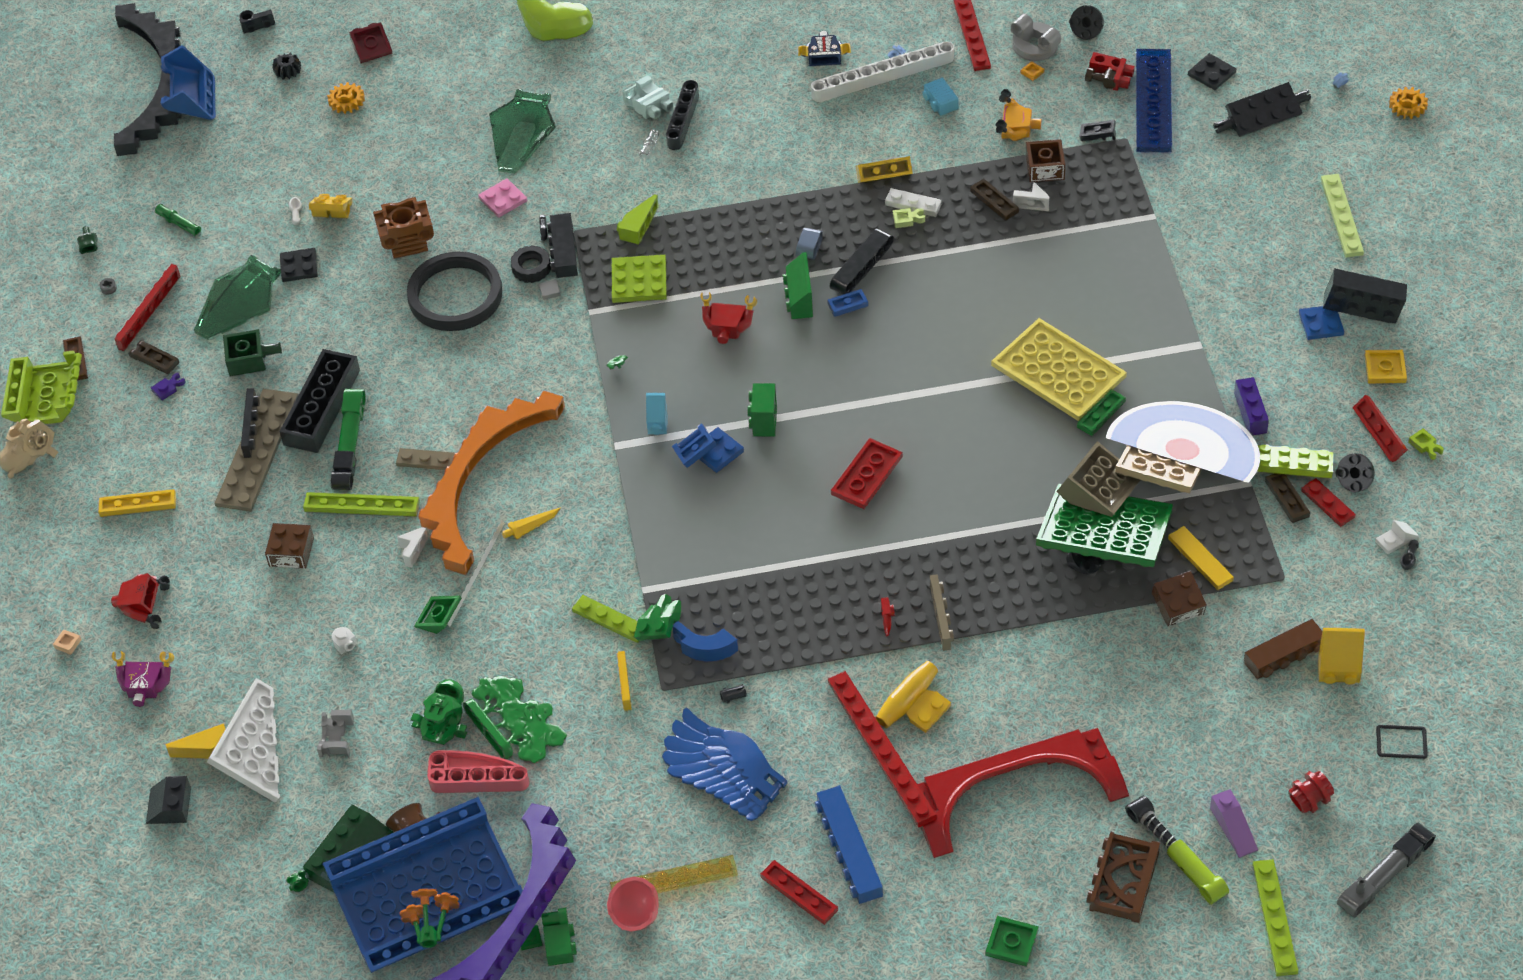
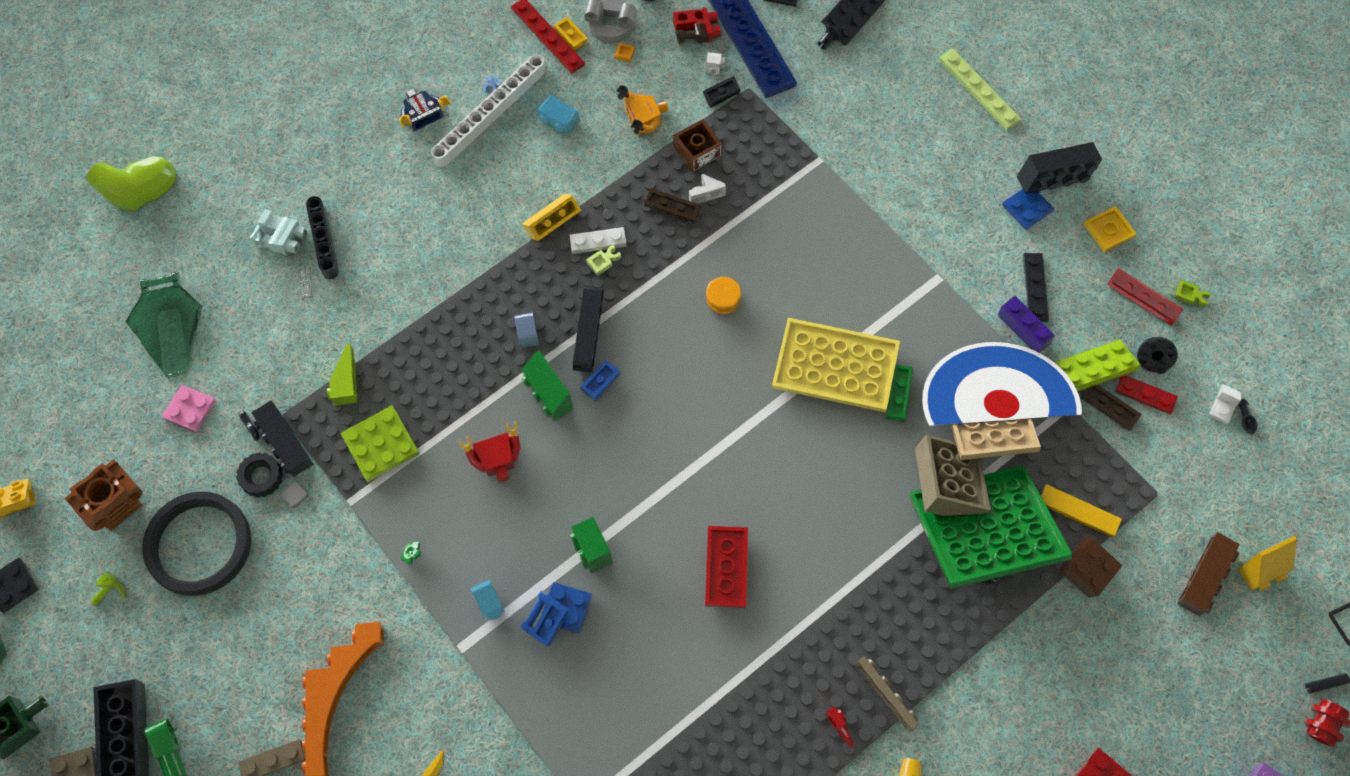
camera: 30 degrees left, 15 degrees up
(374, 291) = (107, 583): none -> lime plant
(993, 38) = (570, 33): none -> yellow plate
(994, 281) = (723, 295): none -> light orange head
(1106, 106) = (714, 63): none -> white plate
(1284, 384) = (1036, 285): none -> black plate
(1336, 771) = (1327, 683): none -> black piece

